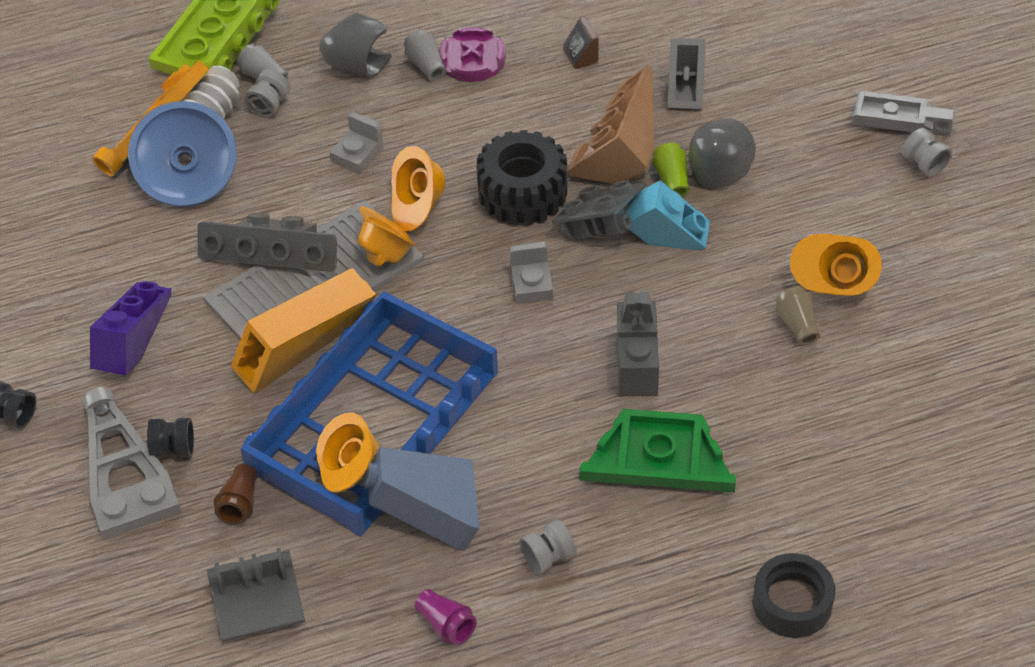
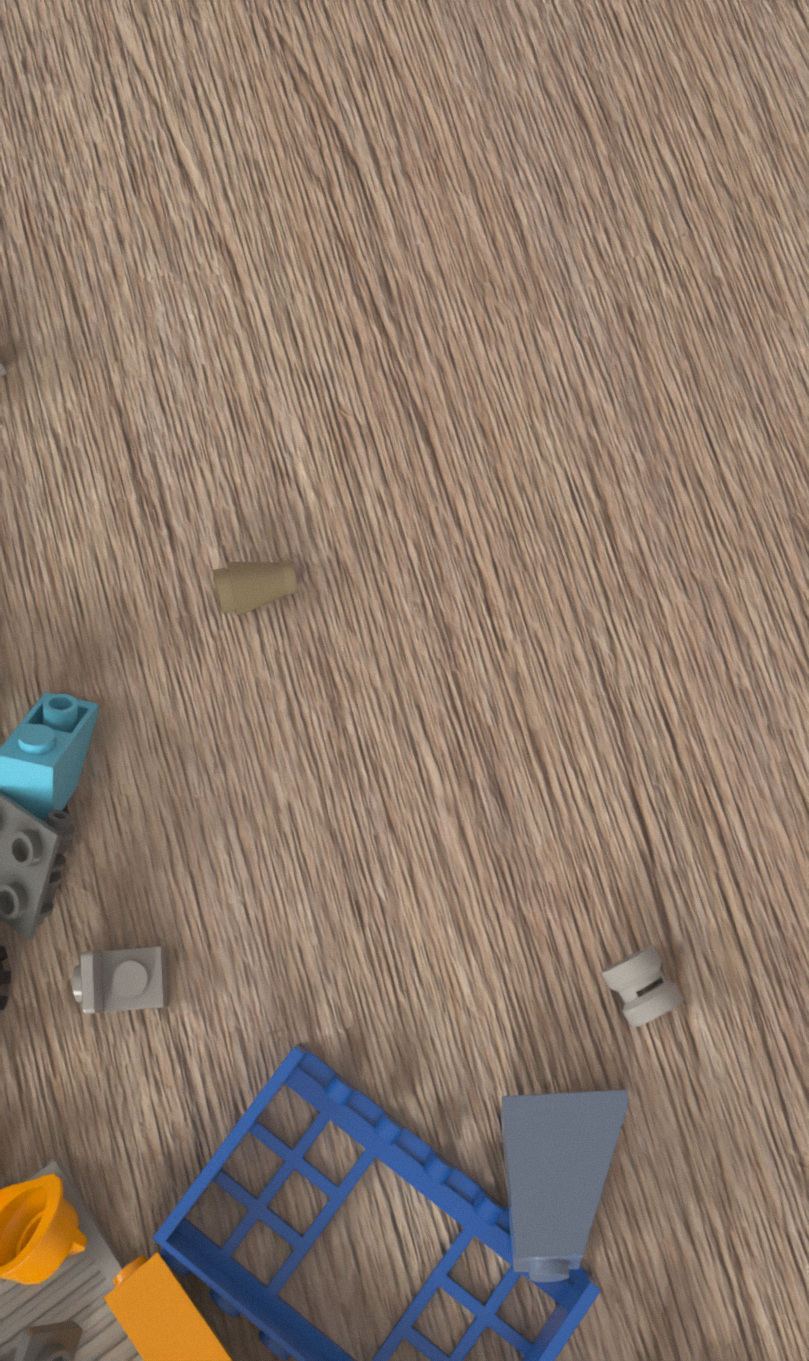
camera: 85 degrees left, 25 degrees up
(345, 451) = (486, 1306): light orange piece -> none
(447, 617) = (752, 1146): magenta cone -> none
(637, 345) = (300, 823): dark grey hinge -> none
(659, 452) = (480, 811): green wing -> none
(795, 567) = (748, 619): black tyre -> none
(836, 264) = (181, 516): light orange piece -> none

